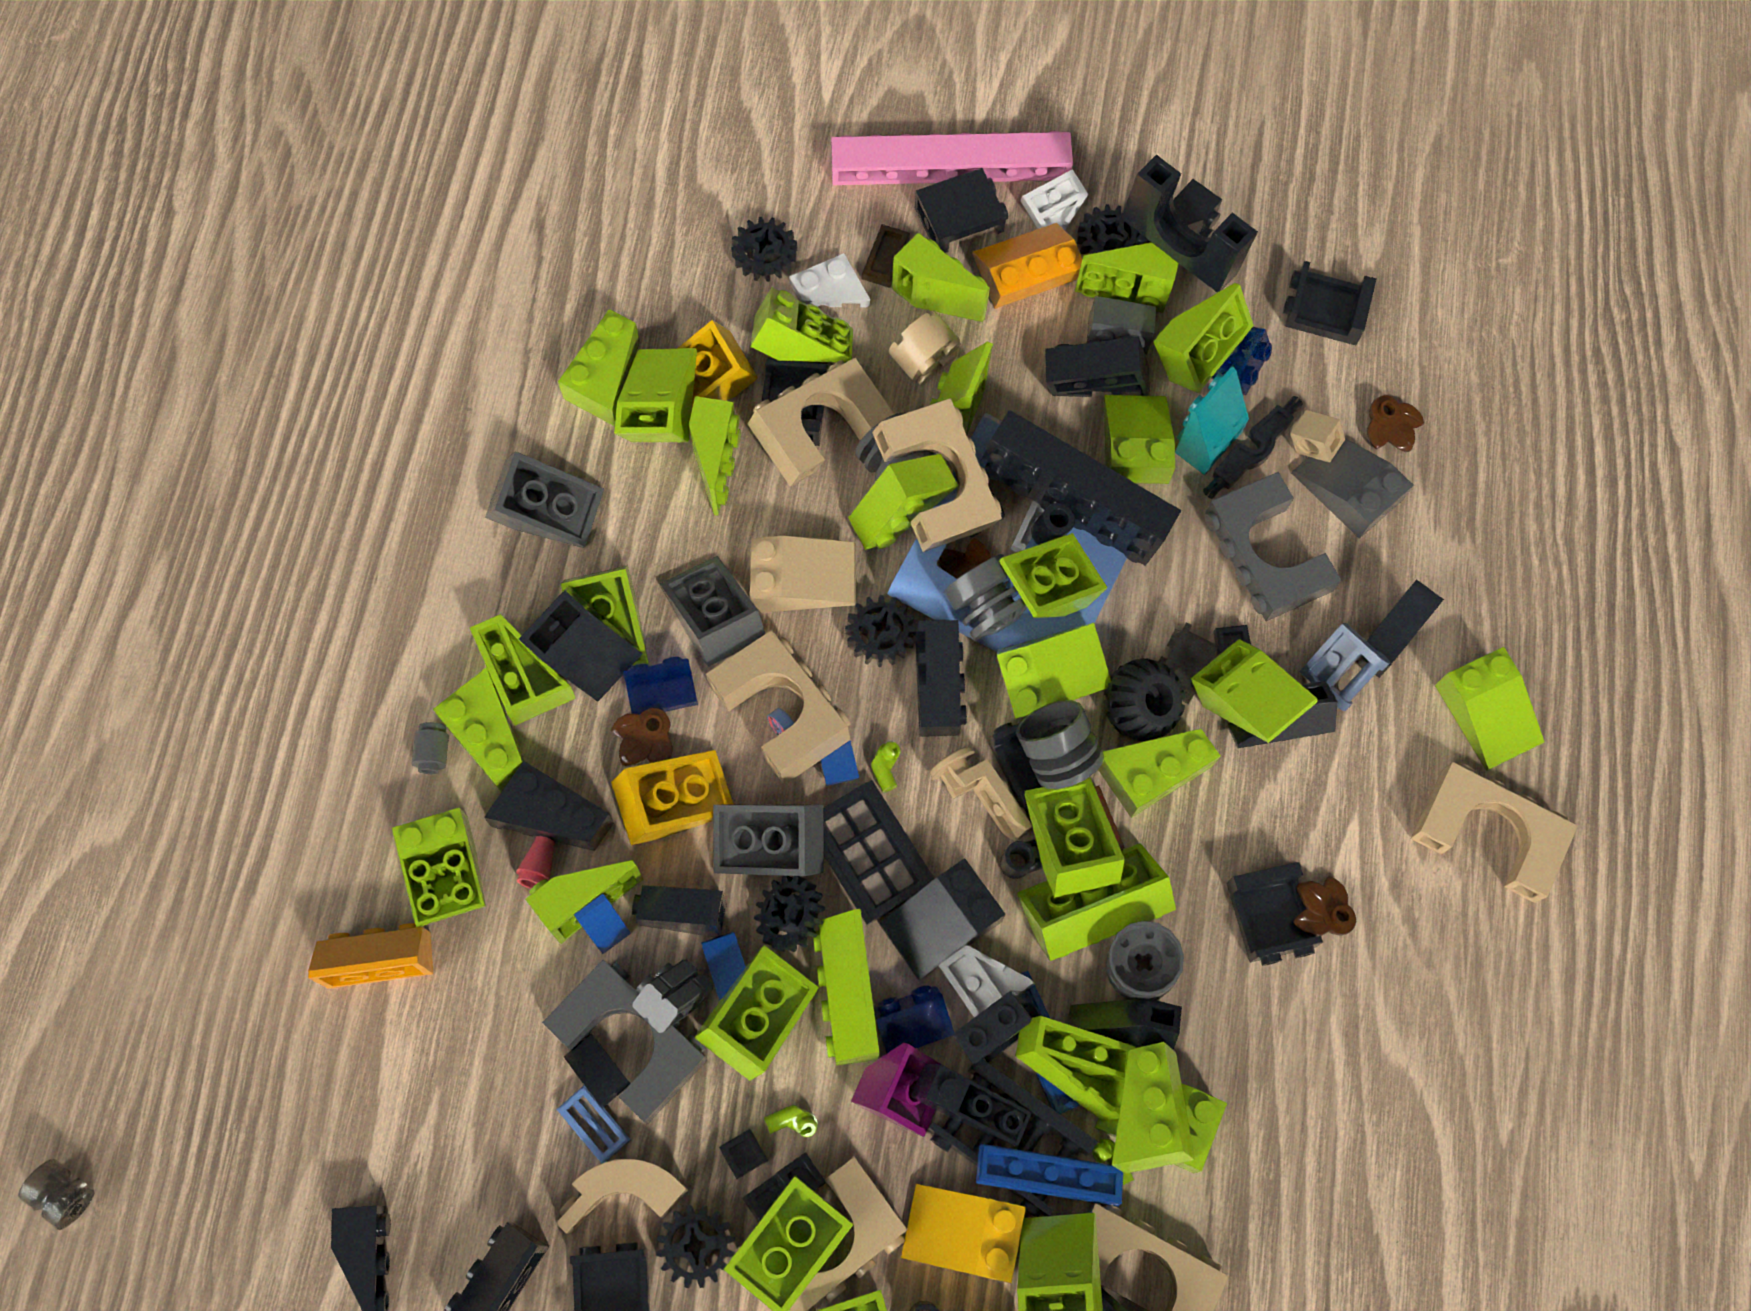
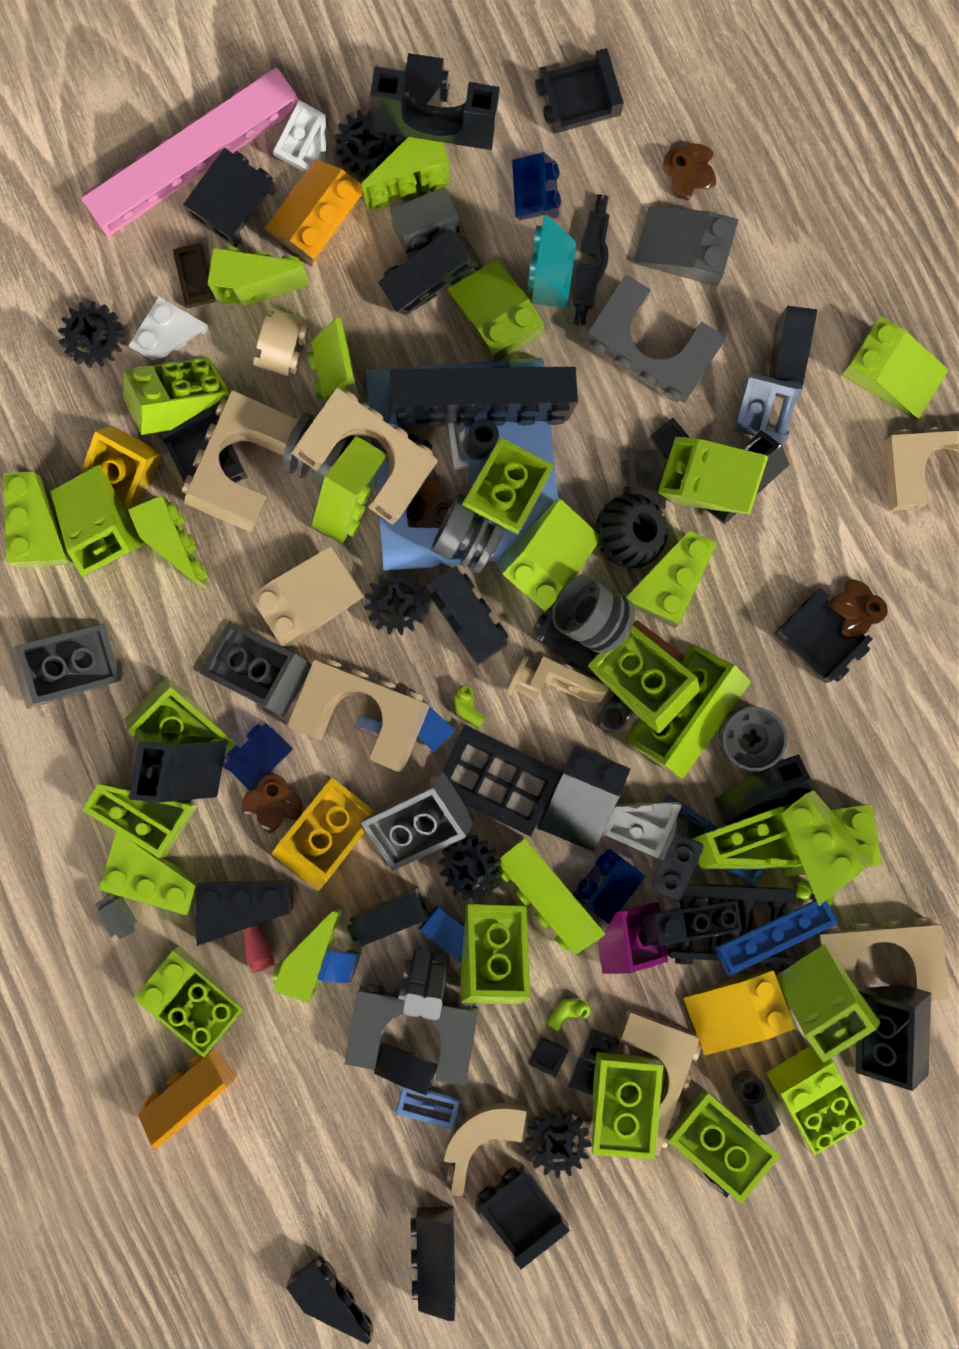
camera: 30 degrees left, 15 degrees up
(1203, 338) = (499, 193): lime slope -> none
(1317, 436) = (637, 221): tan brick -> none

